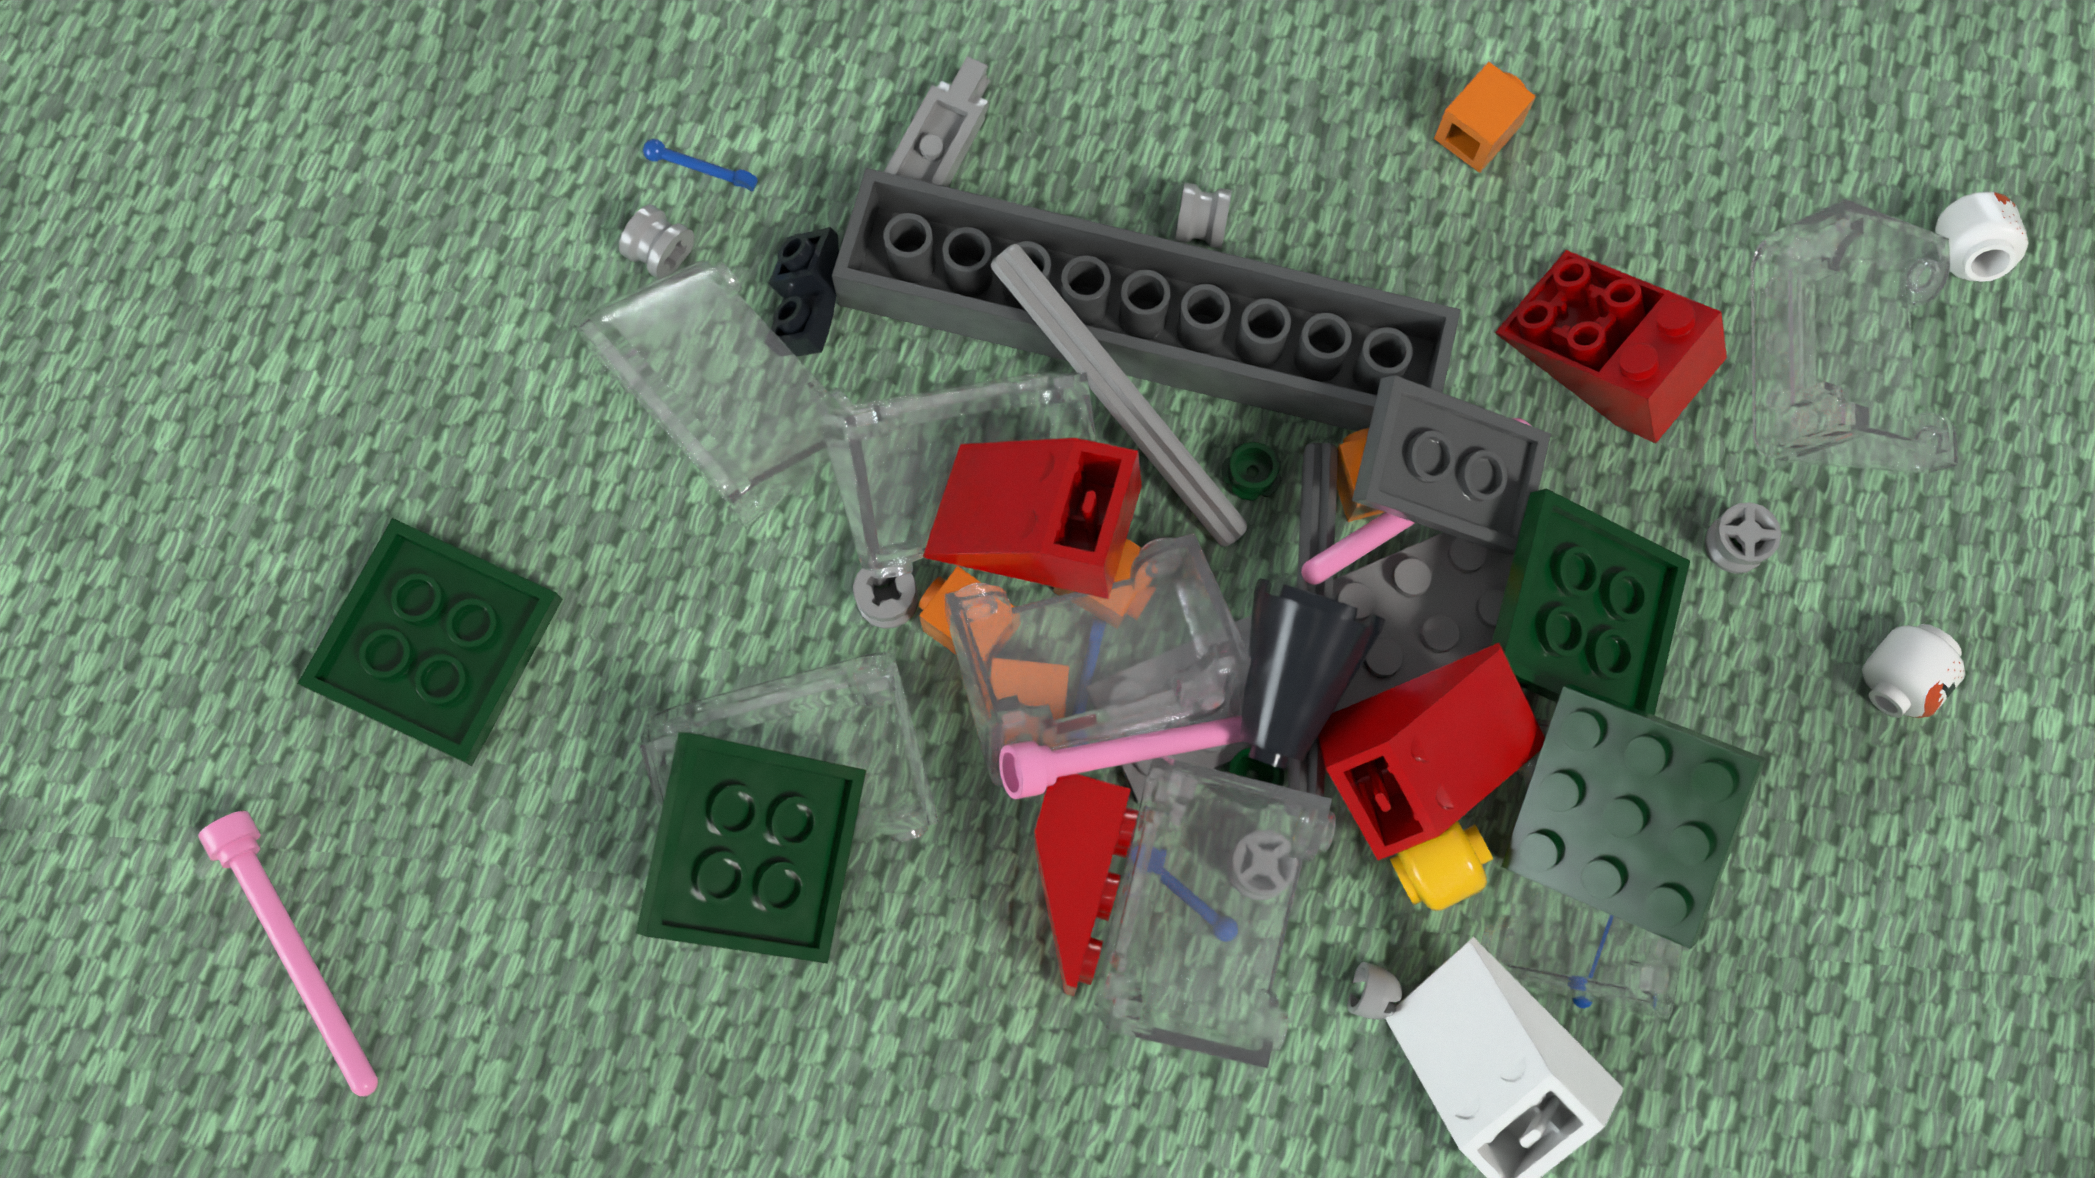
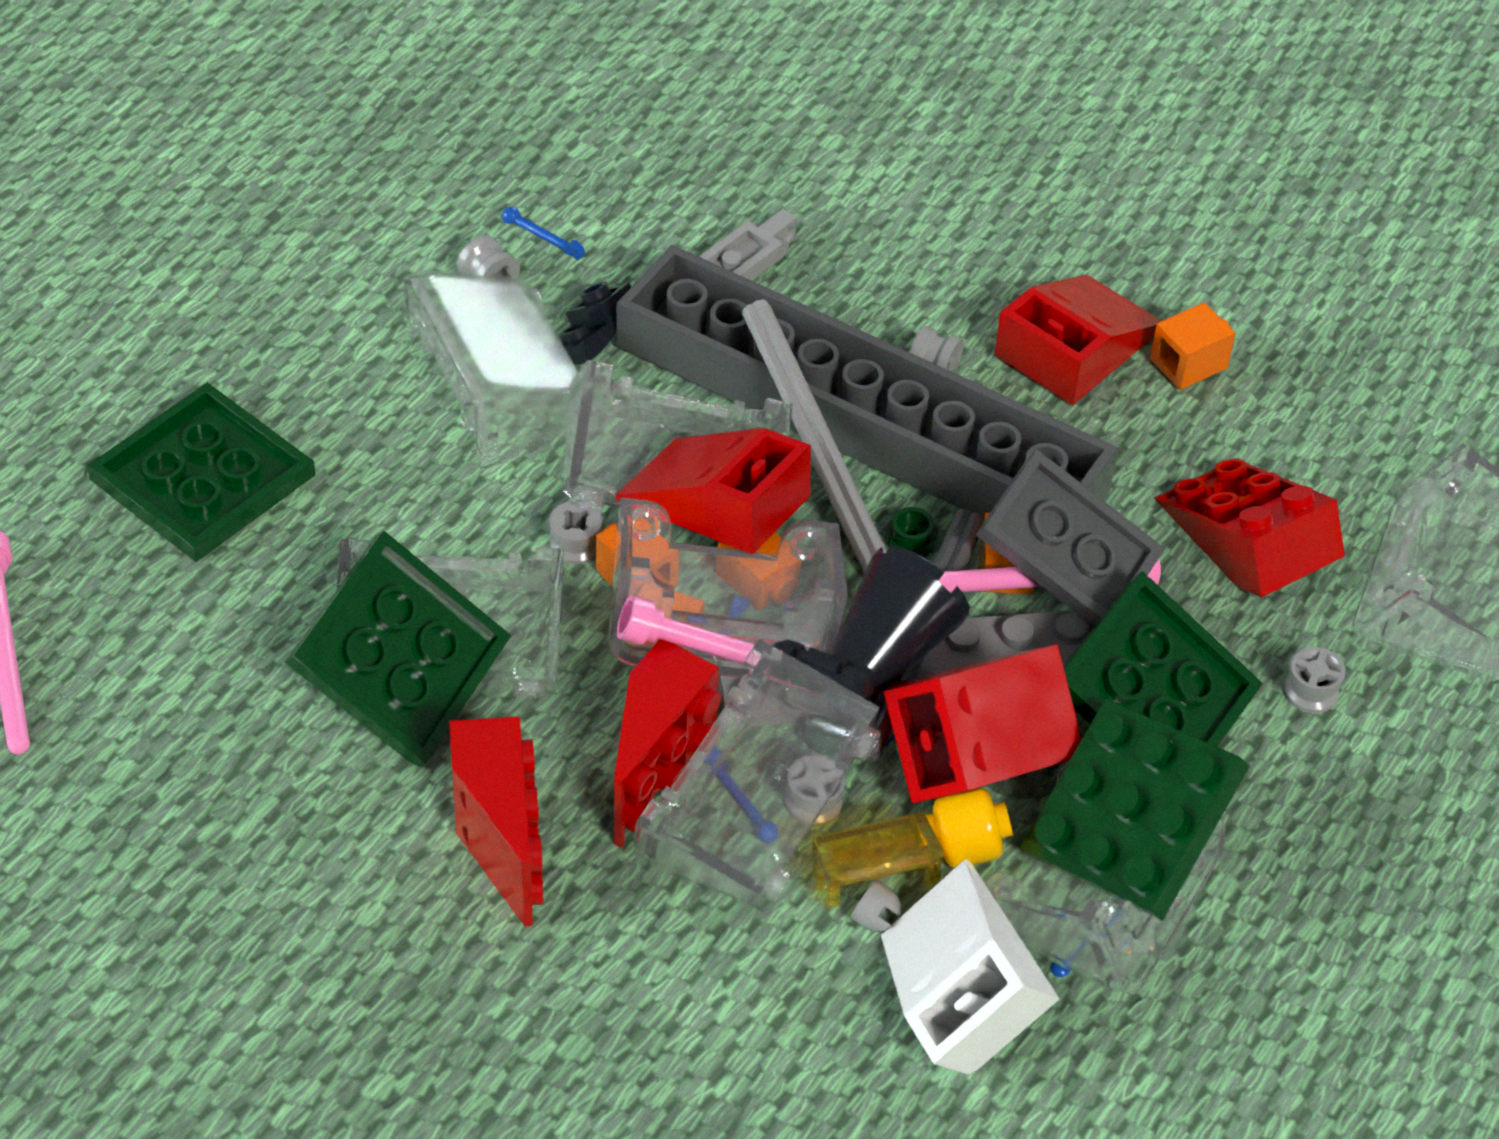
camera: 15 degrees right, 25 degrees down
(922, 1013) = (499, 807): none -> red slope
(1248, 756) = (855, 678): none -> black axle
(1348, 135) = (1071, 334): none -> red slope
(1362, 944) = (875, 852): none -> clear yellow hinge
(1913, 671) = (1435, 809): white head -> none

